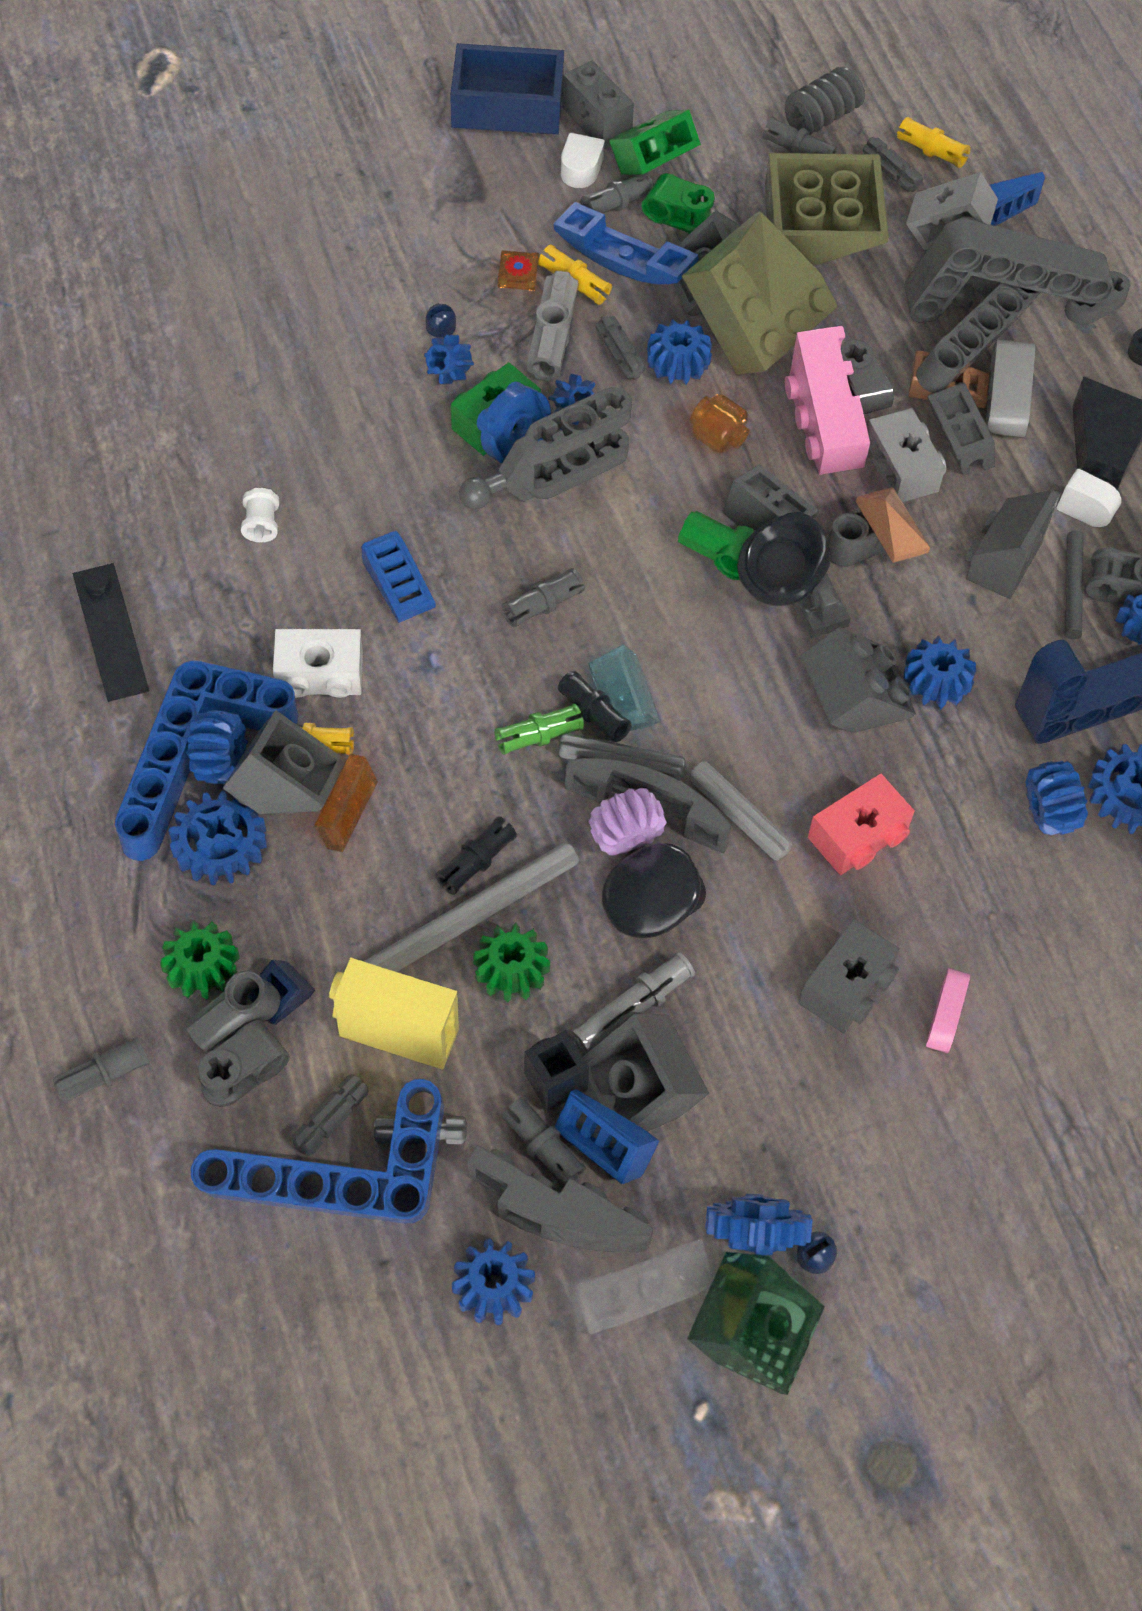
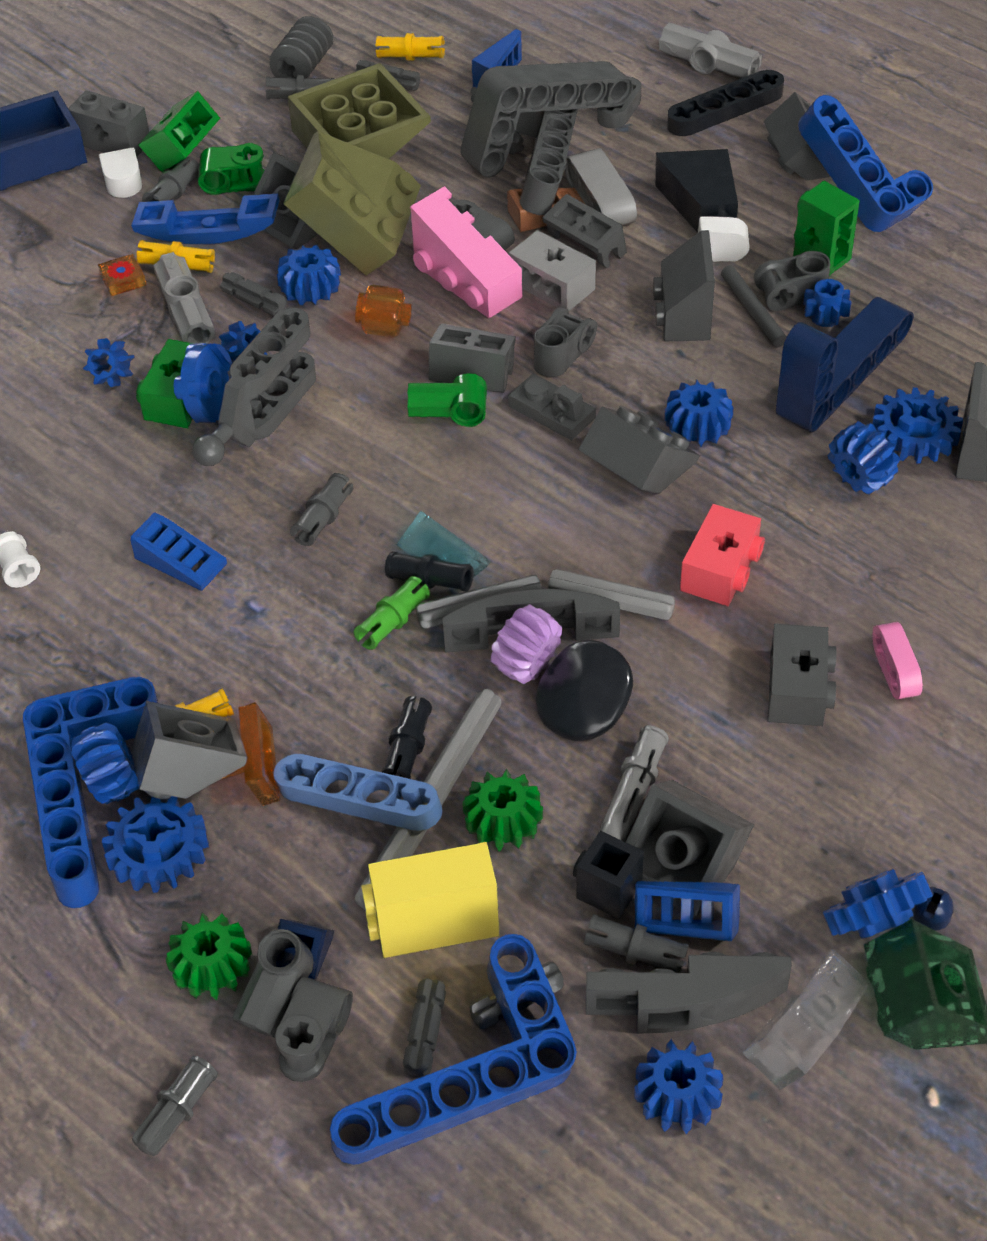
camera: 25 degrees left, 10 degrees down
(335, 649) = (154, 648): white brick -> none
(398, 883) = (360, 785): none -> medium blue beam
(440, 320) = (77, 339): dark blue hinge -> none
(784, 559) = (515, 380): black piece -> none
(892, 524) = (585, 318): nougat slope -> none
(949, 202) = (456, 83): light grey brick -> none

